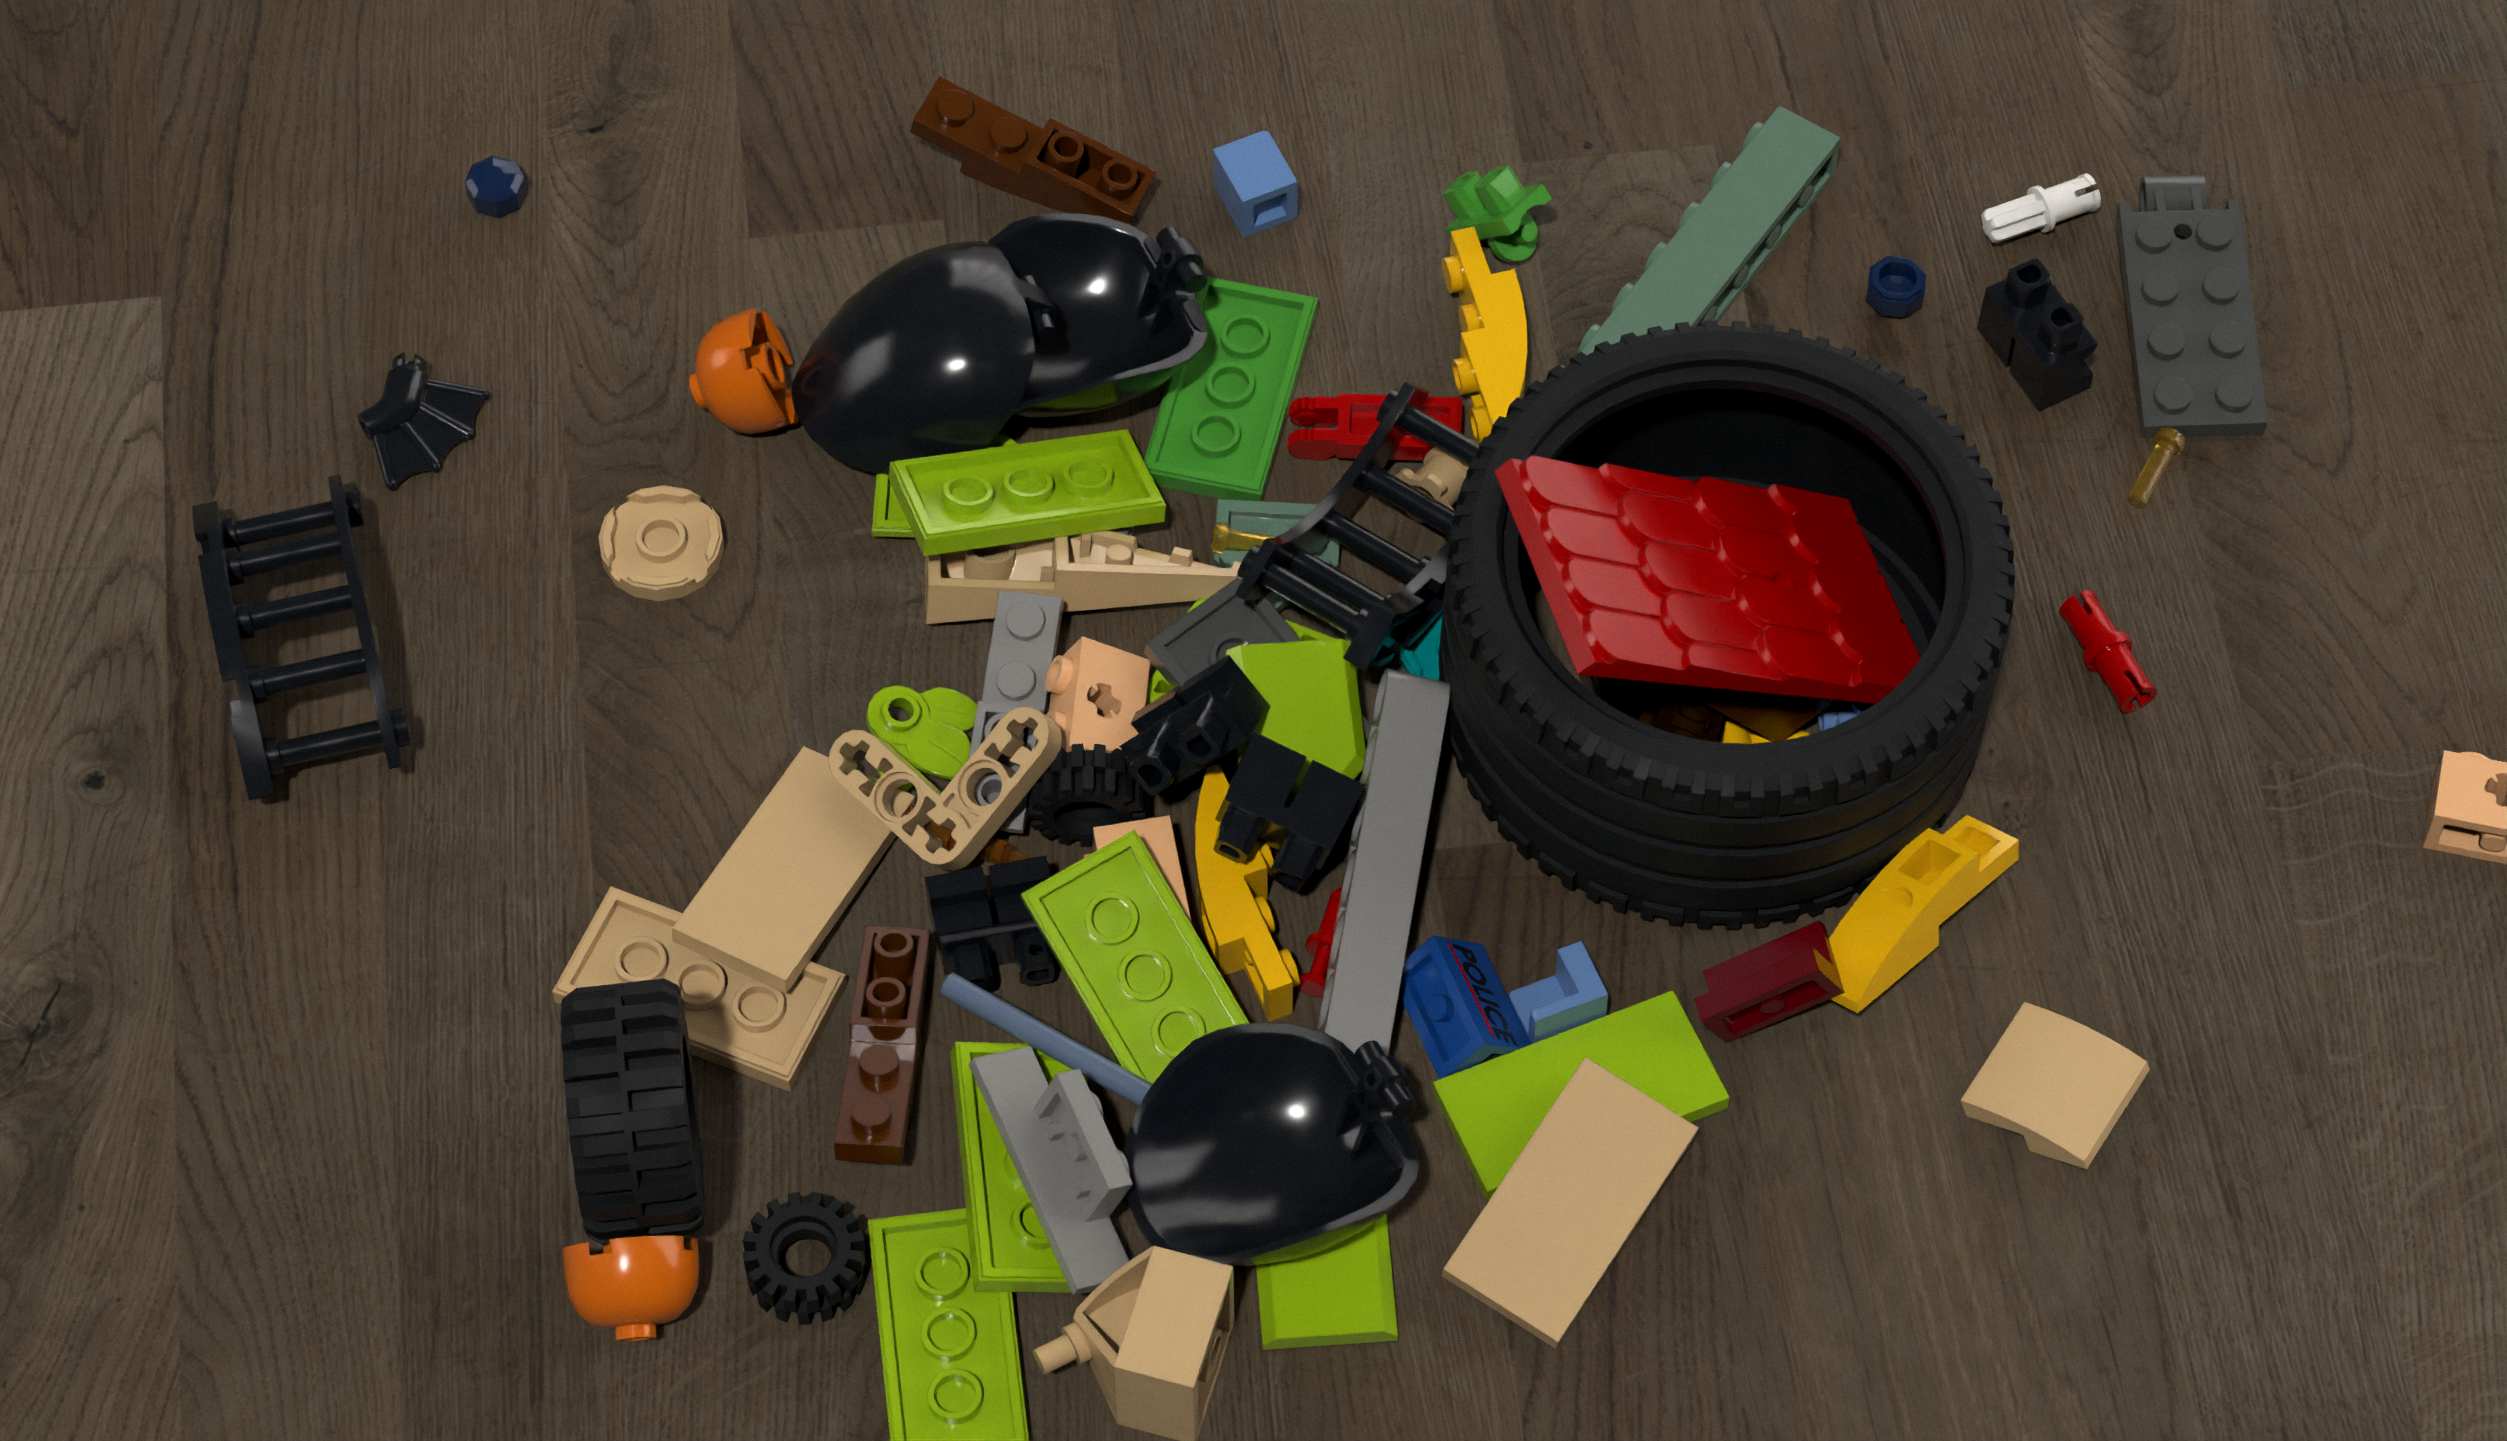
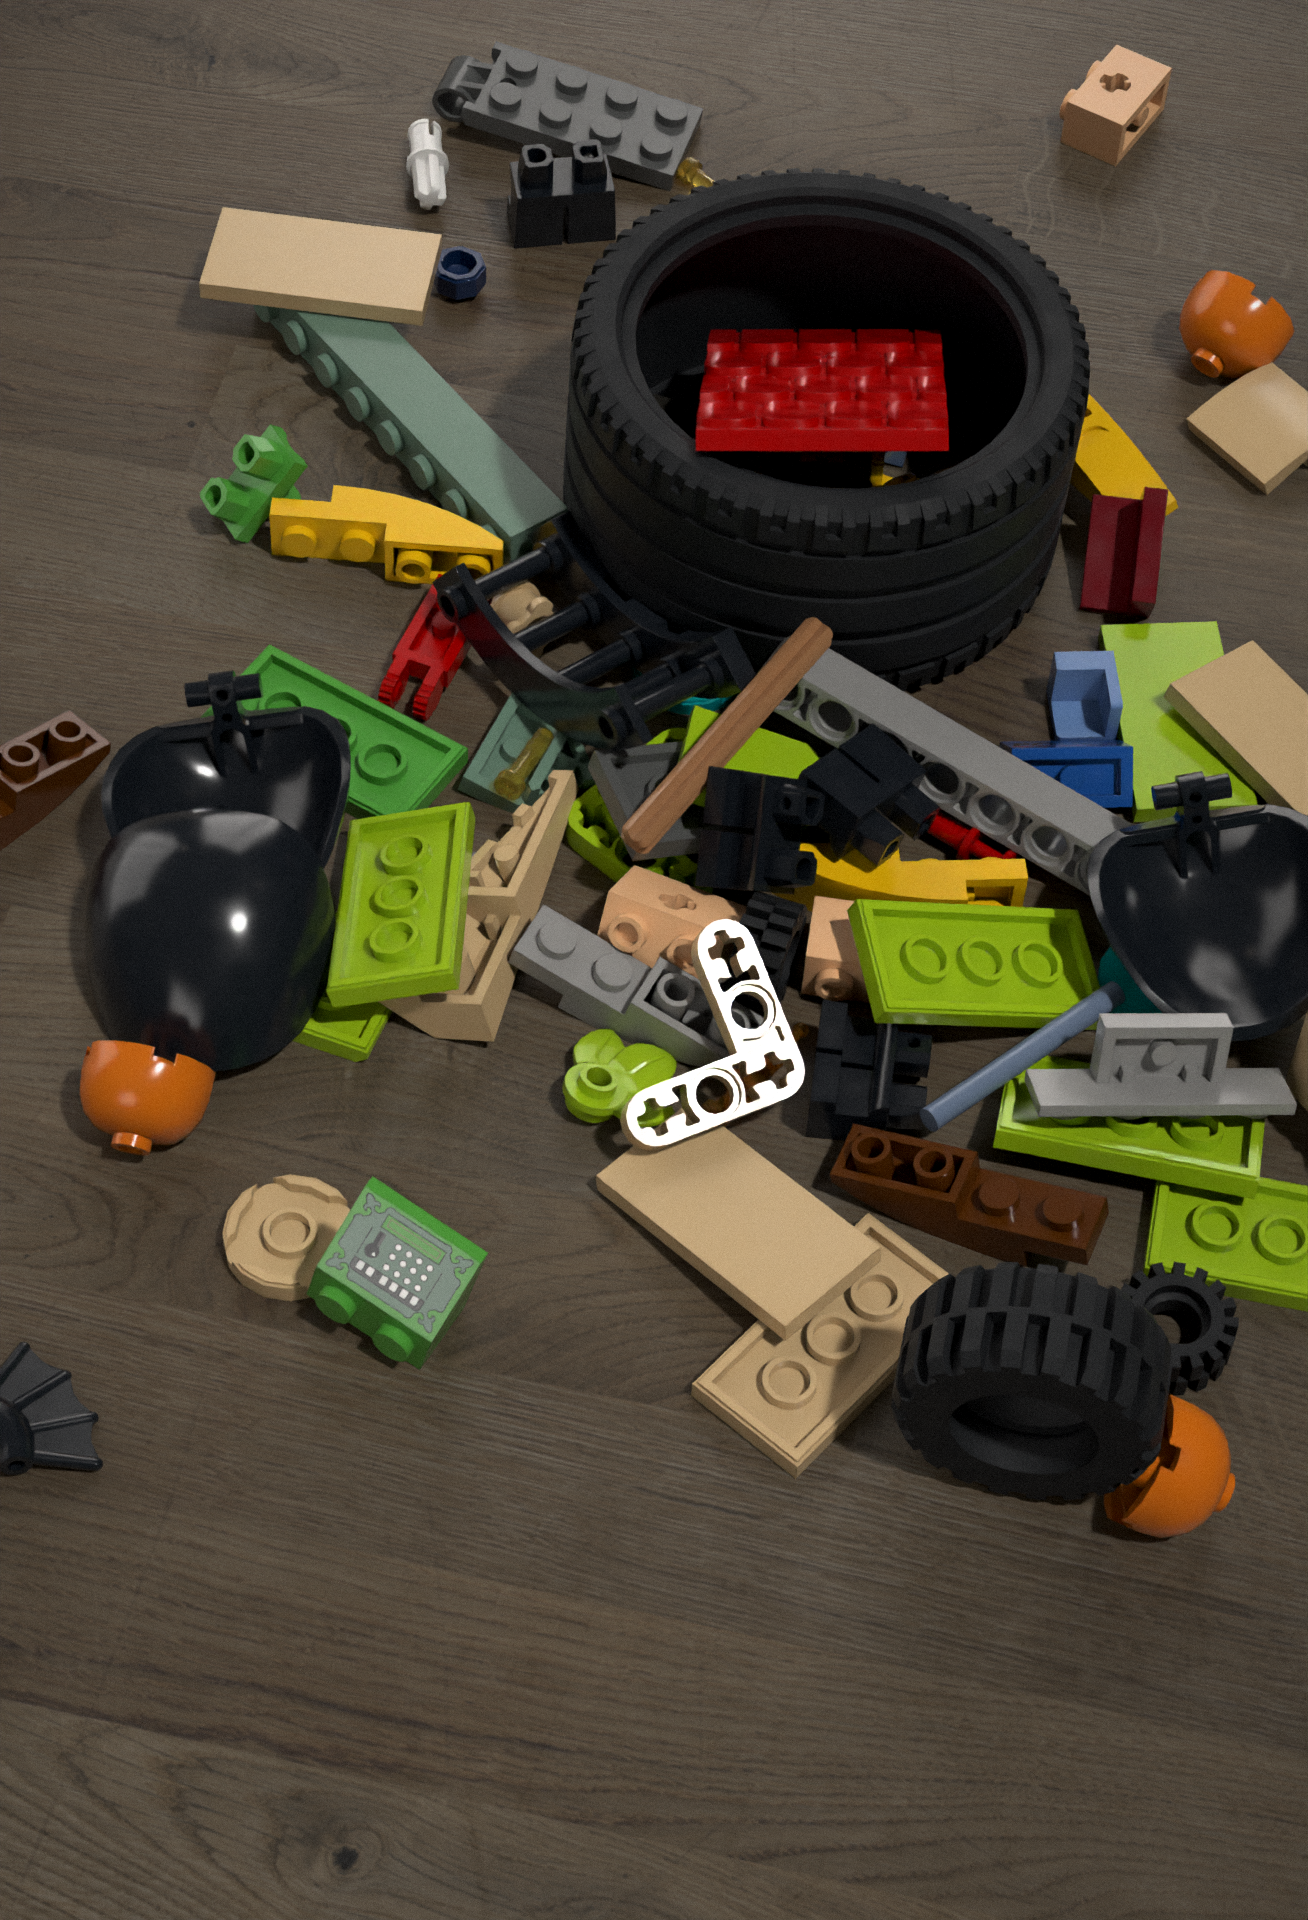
camera: 75 degrees left, 5 degrees down
(233, 622) = (262, 1624): black fence -> none
(612, 616) = (396, 1274): none -> slope
(1255, 183) = (119, 646): medium blue panel -> none
(1284, 661) = (726, 735): none -> medium nougat axle
(1797, 158) = (321, 266): none -> tan tile
(2165, 1004) = (1231, 328): none -> orange cylinder

